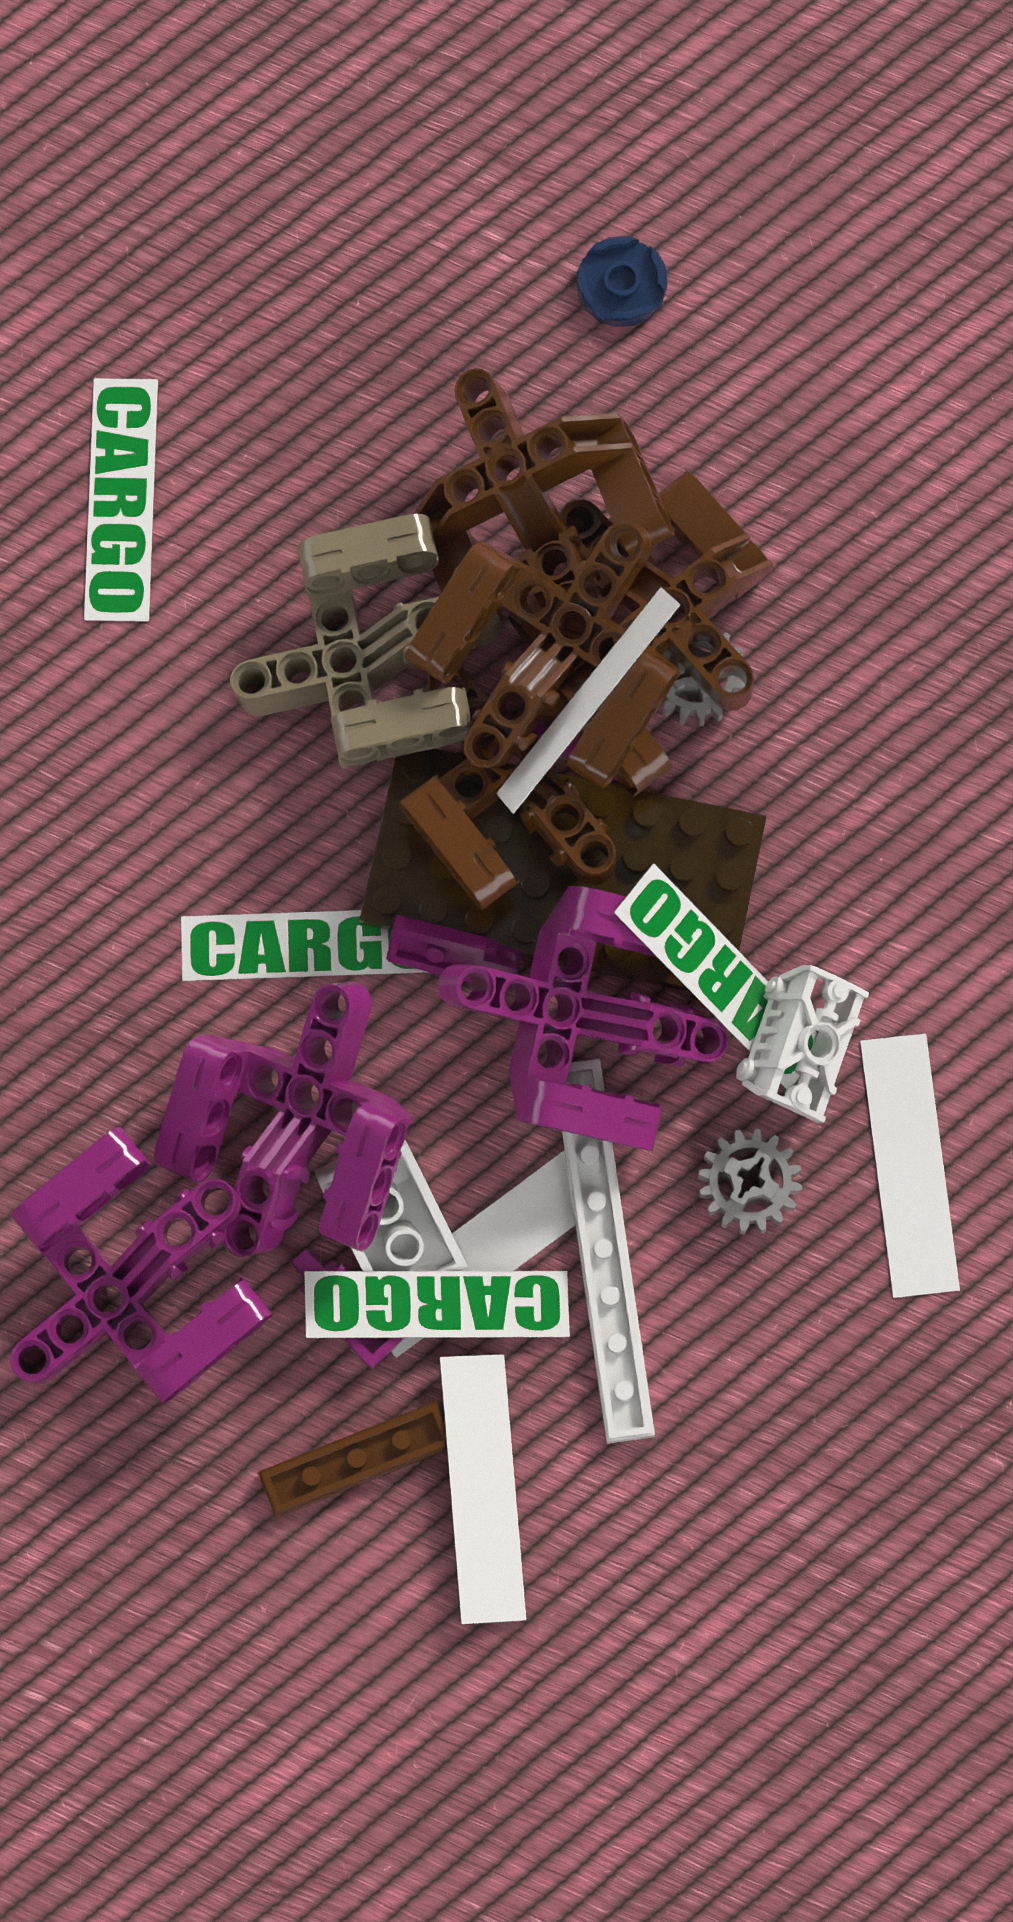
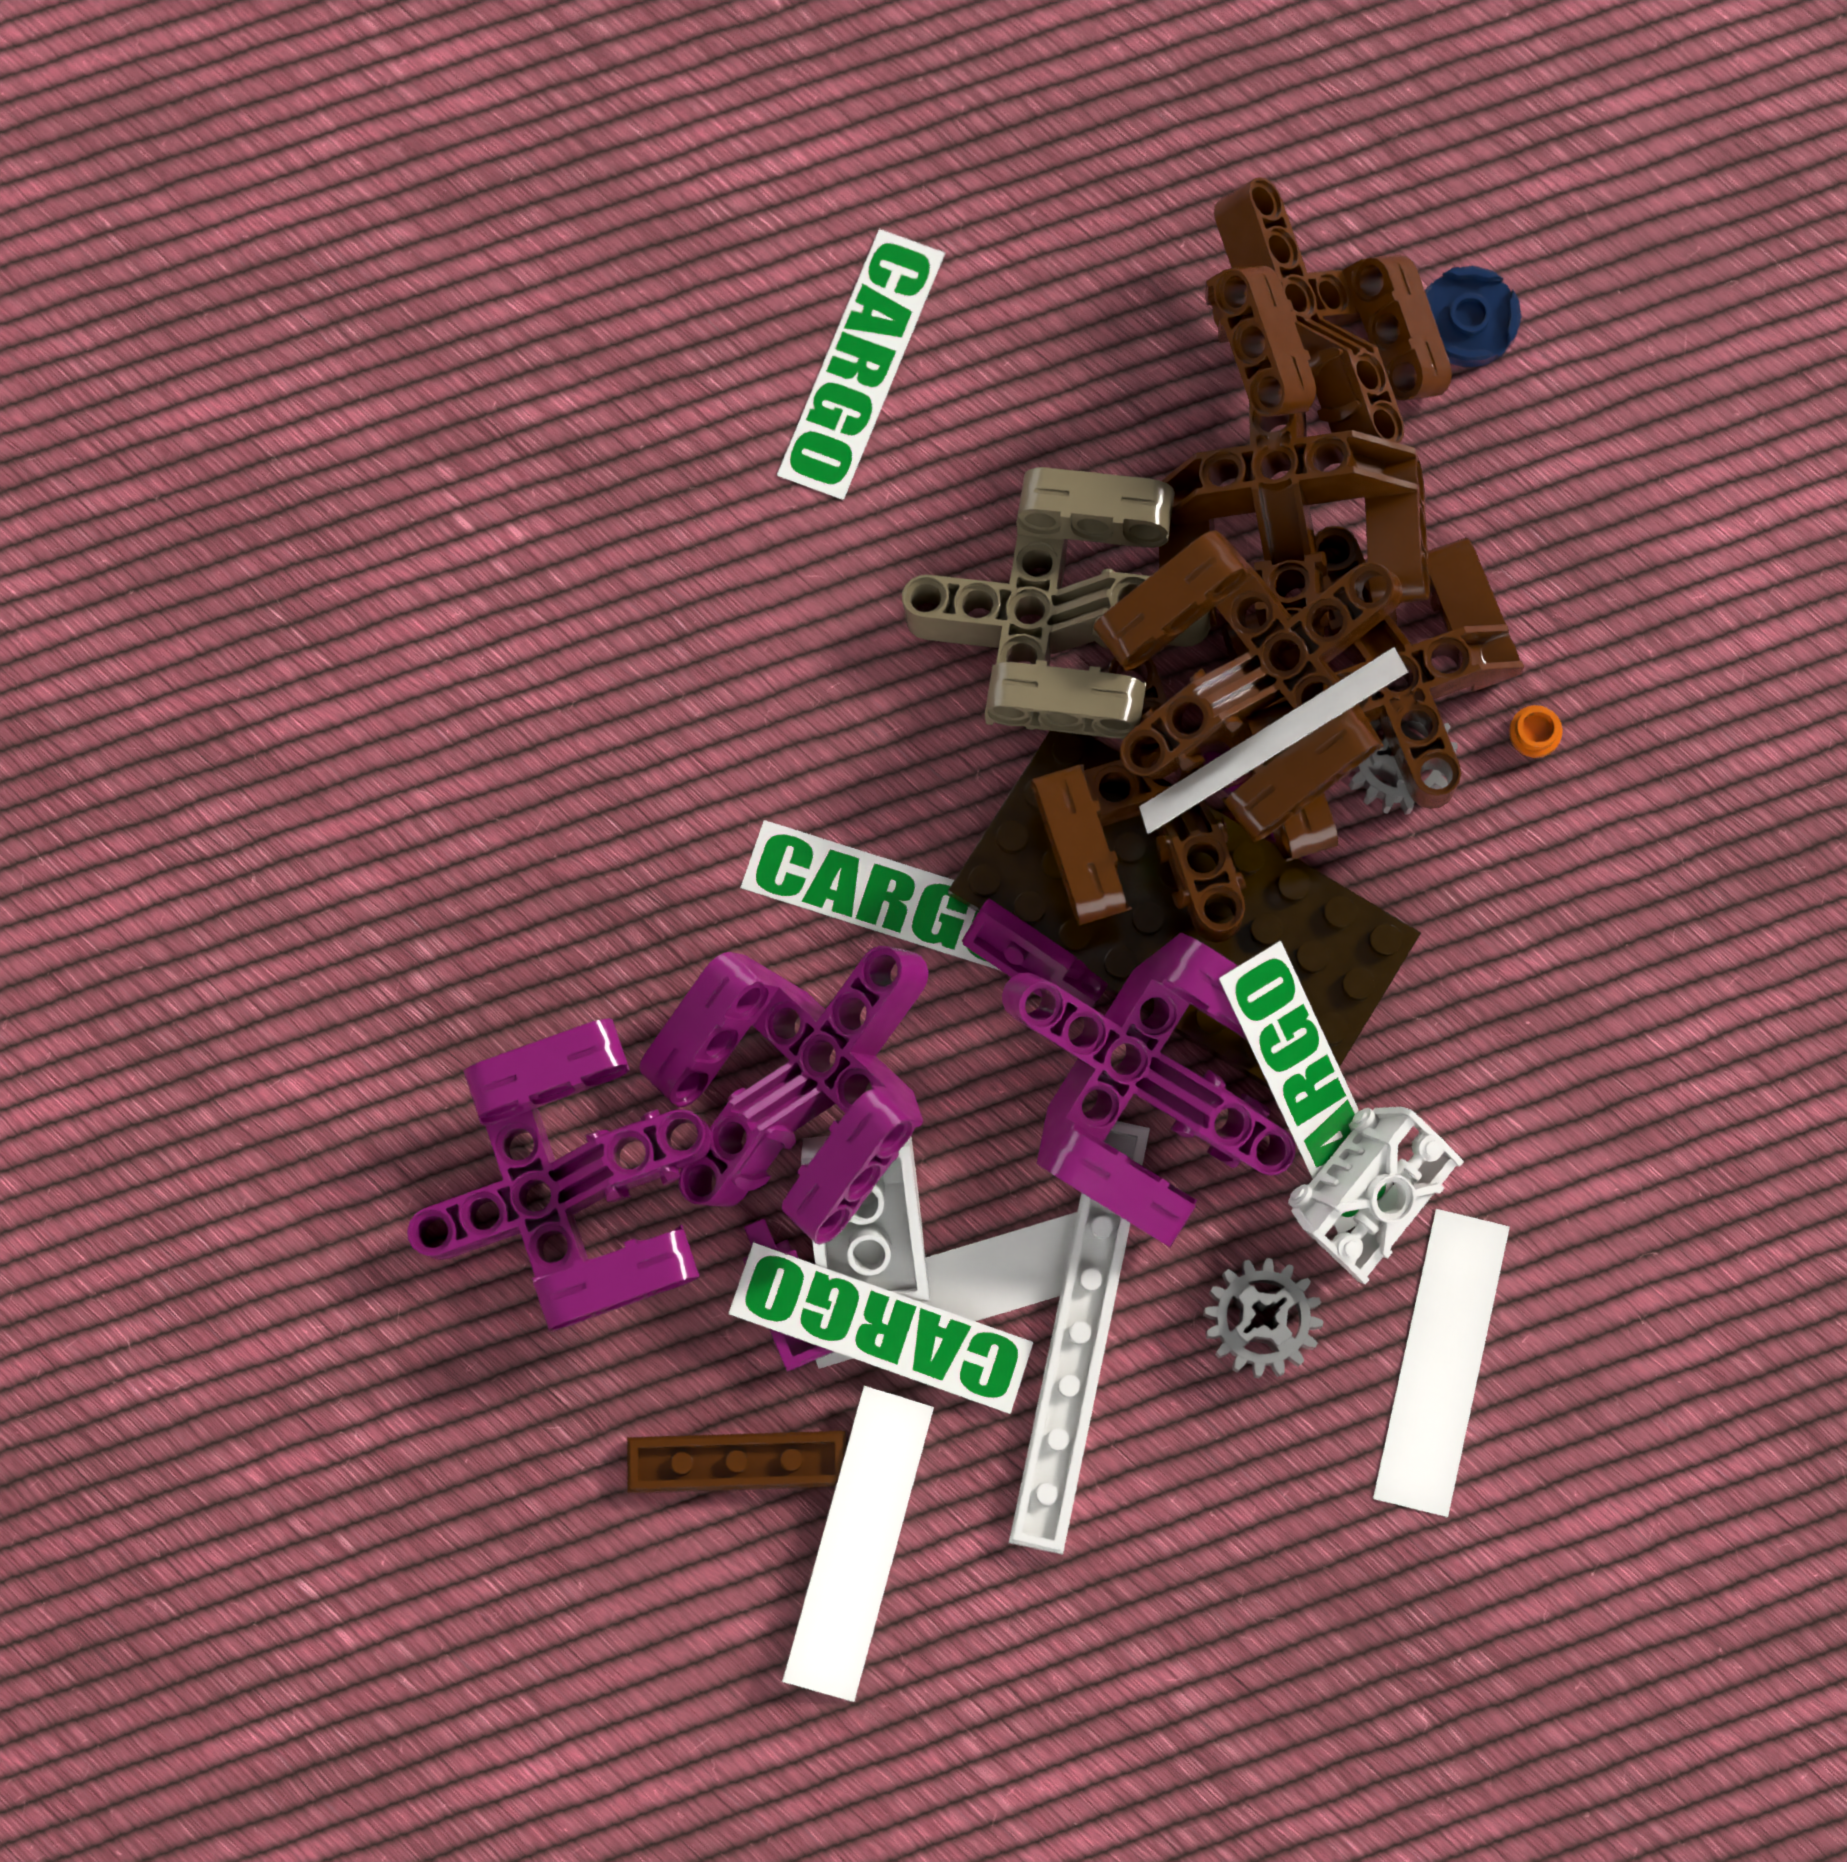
camera: 20 degrees right, 0 degrees up
(470, 337) = (1290, 321): none -> reddish brown piece
(801, 613) = (1535, 731): none -> orange plate

